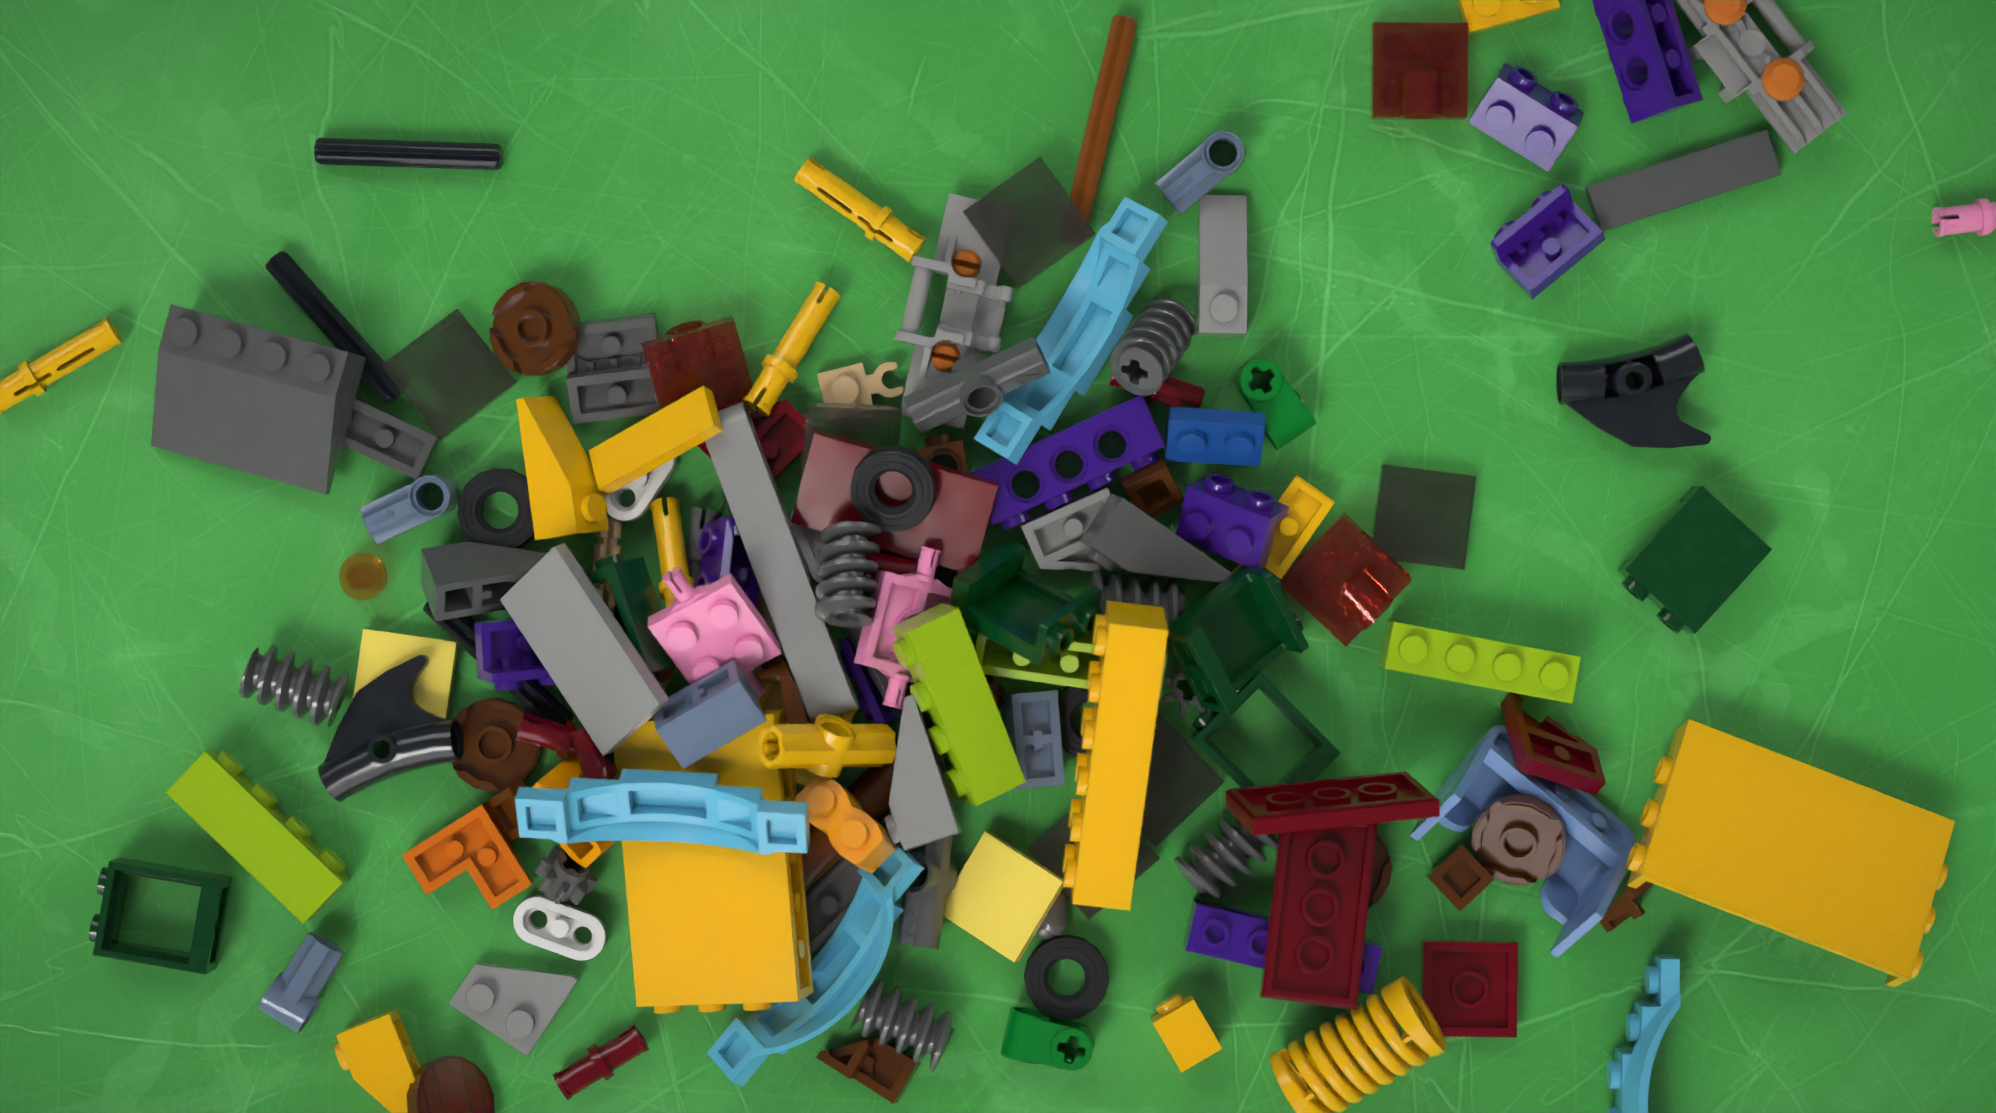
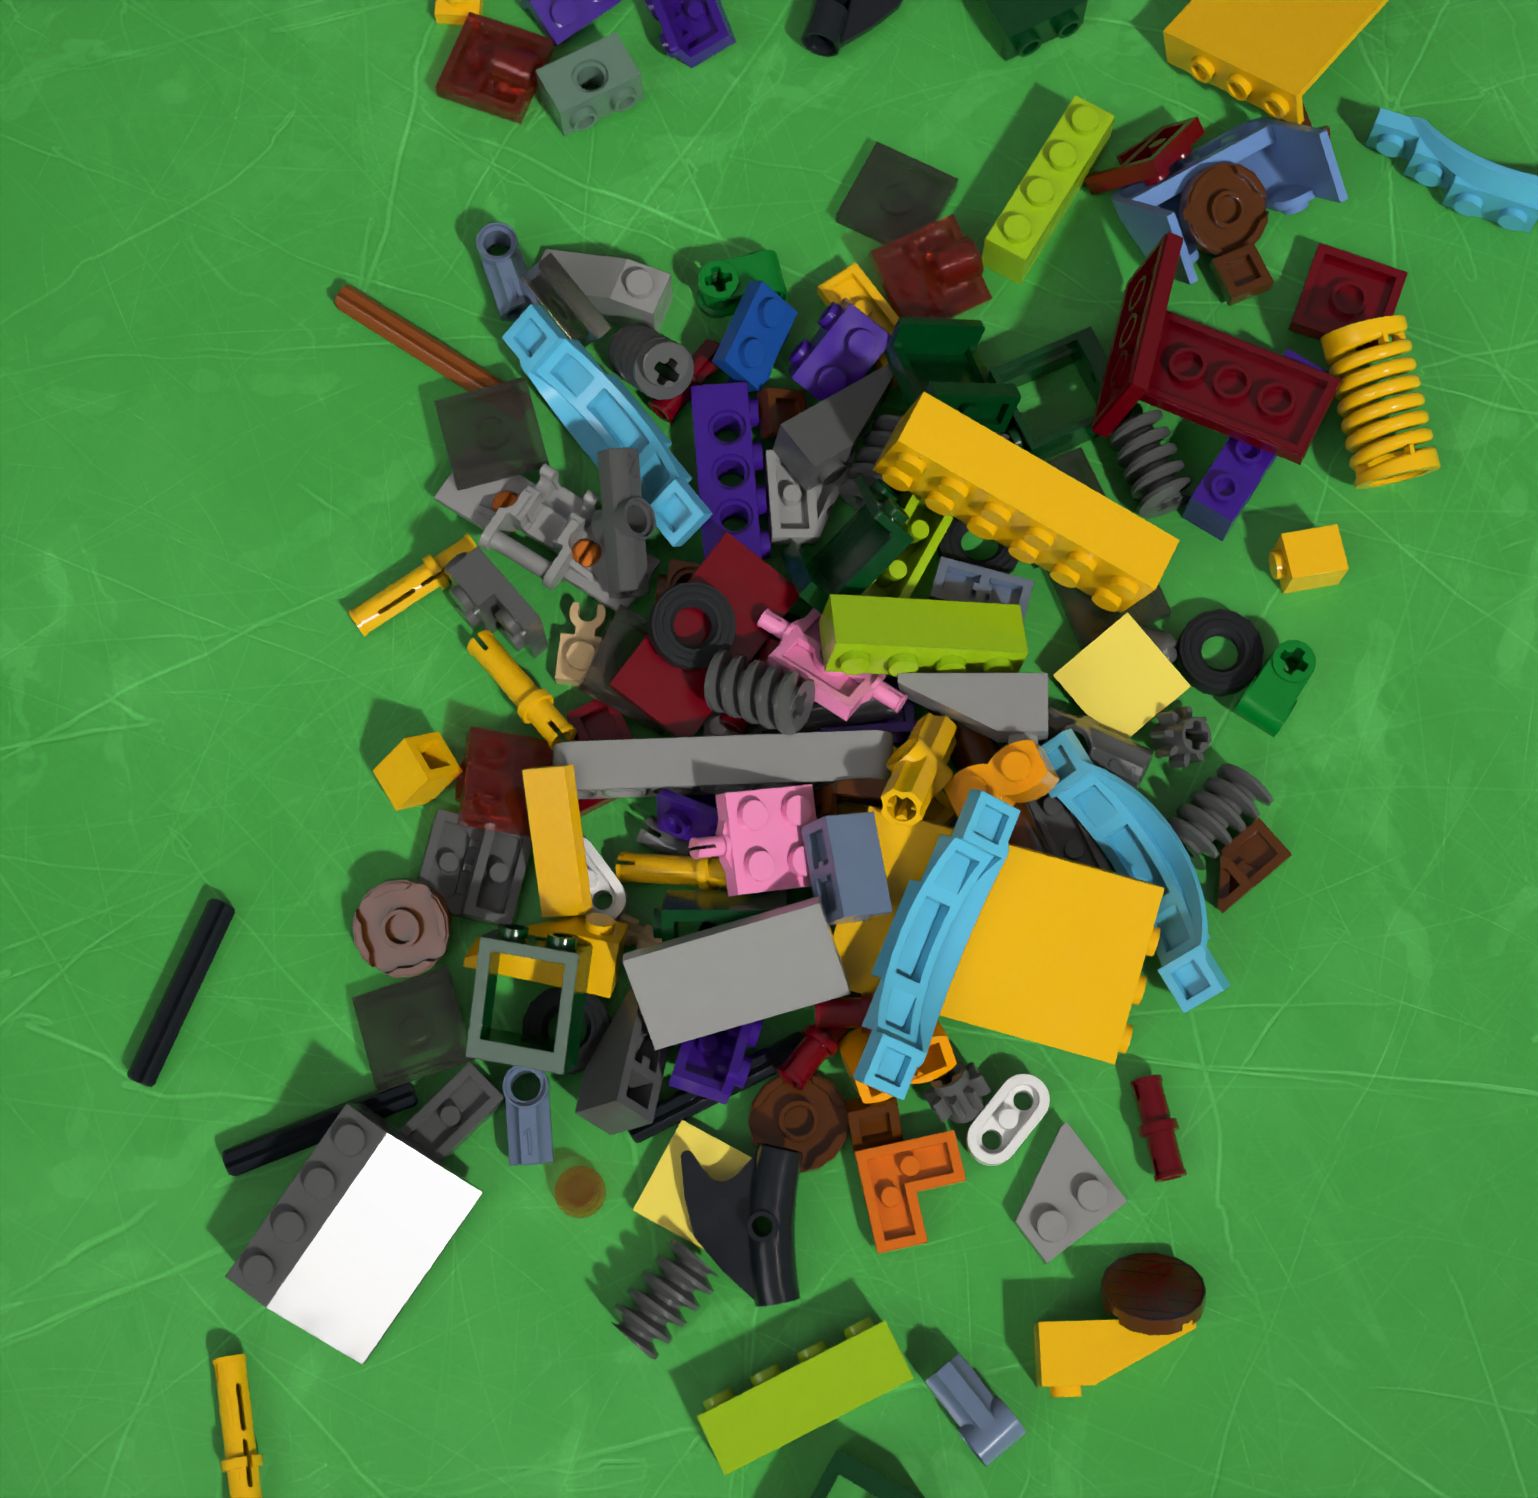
camera: 75 degrees left, 15 degrees down
(459, 478) = (520, 1049): none -> window
(678, 285) = (417, 770): none -> yellow brick
(864, 282) = (492, 602): none -> dark grey plate
(965, 968) = (1180, 737): none -> dark grey gear
(1178, 245) = (565, 301): none -> clear smoke tile
(1460, 177) = (599, 64): none -> sand green brick

